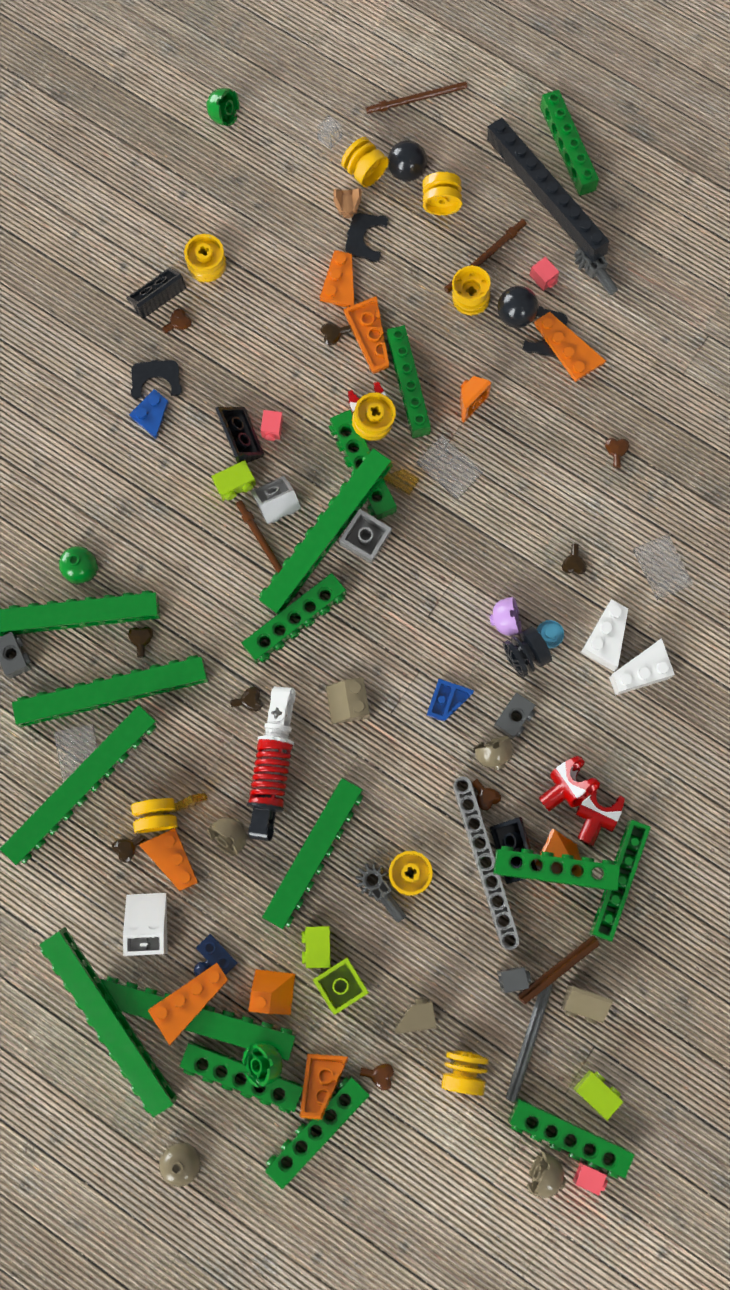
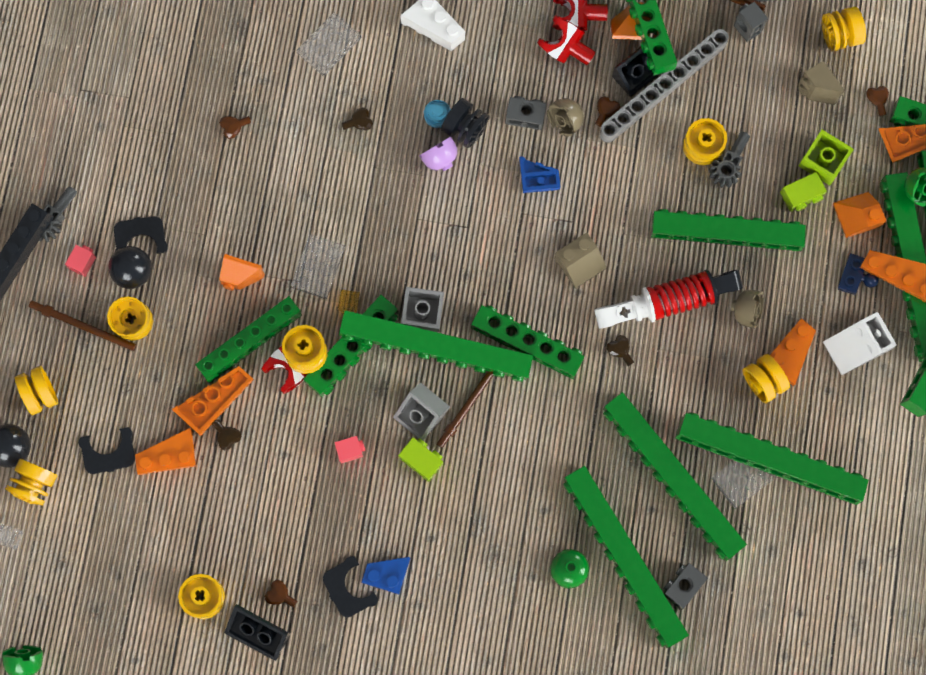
camera: 120 degrees left, 0 degrees up
(126, 847) = (803, 395): dark brown rock -> none
(140, 638) = (611, 474): dark brown rock -> none
(190, 801) = (735, 354): clear yellow tile -> none
(240, 433) = (372, 475): black slope -> none
(347, 201) = (80, 482): medium nougat brick -> none
(571, 350) = (151, 203): orange wing -> none
(607, 636) = (416, 63): white wedge -> none

